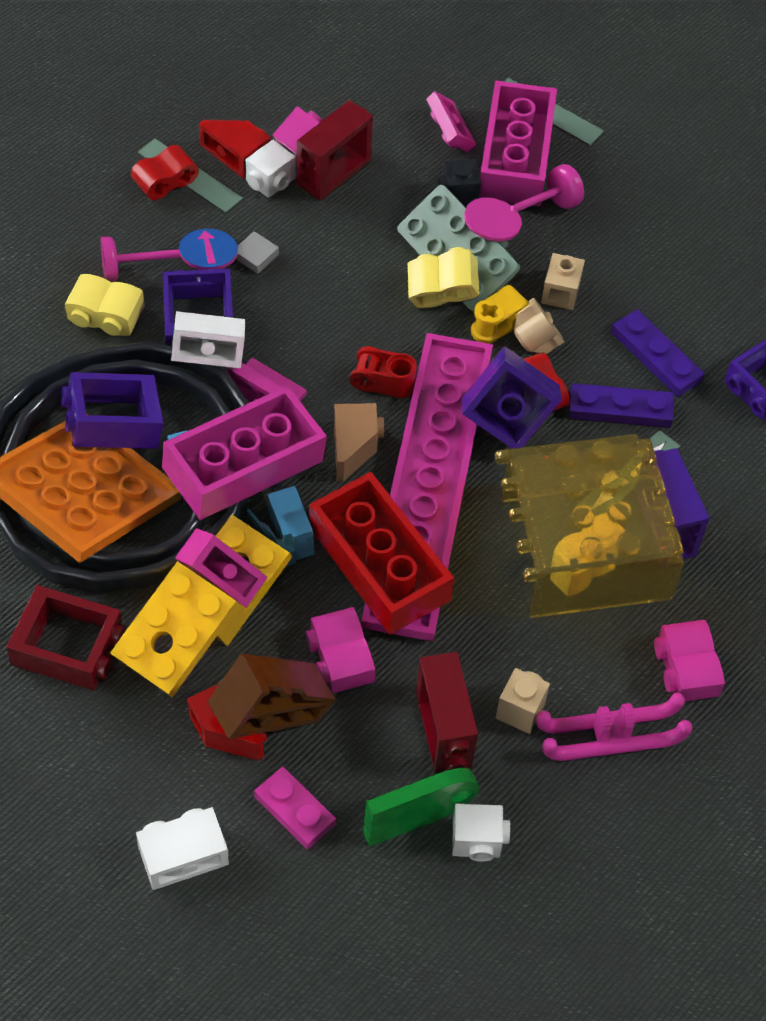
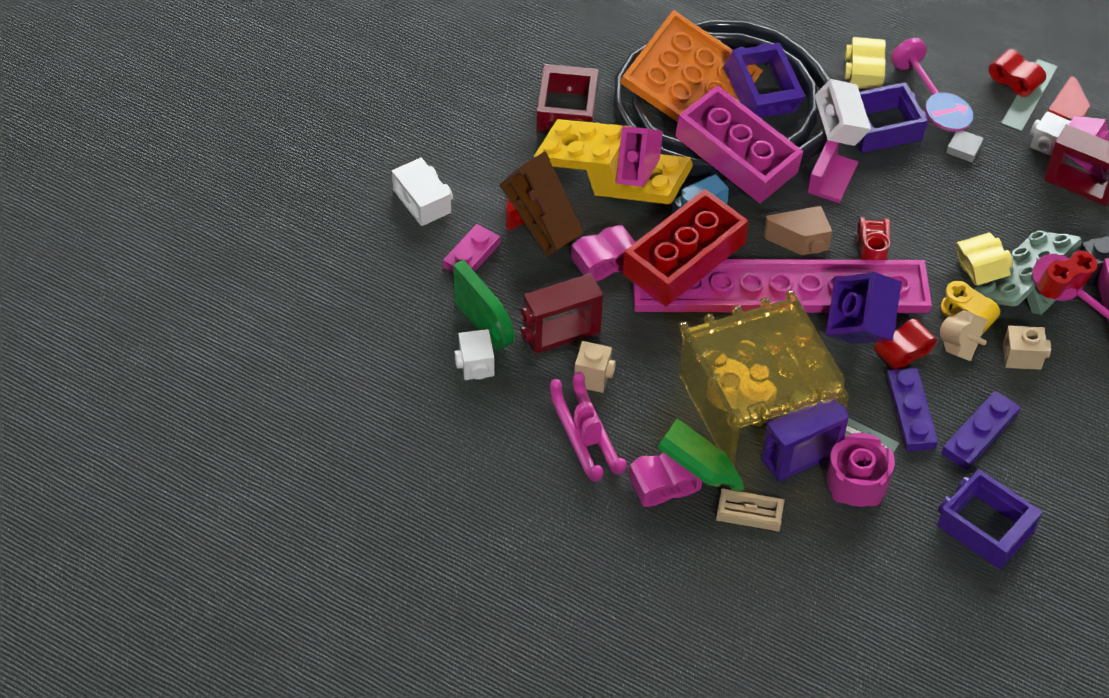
camera: 80 degrees right, 5 degrees down
(505, 206) = (1067, 274): none -> red axle
(681, 615) = (699, 456): none -> green tile
(716, 465) = (860, 470): none -> dark pink brick
(728, 613) = (749, 514): none -> tan tile

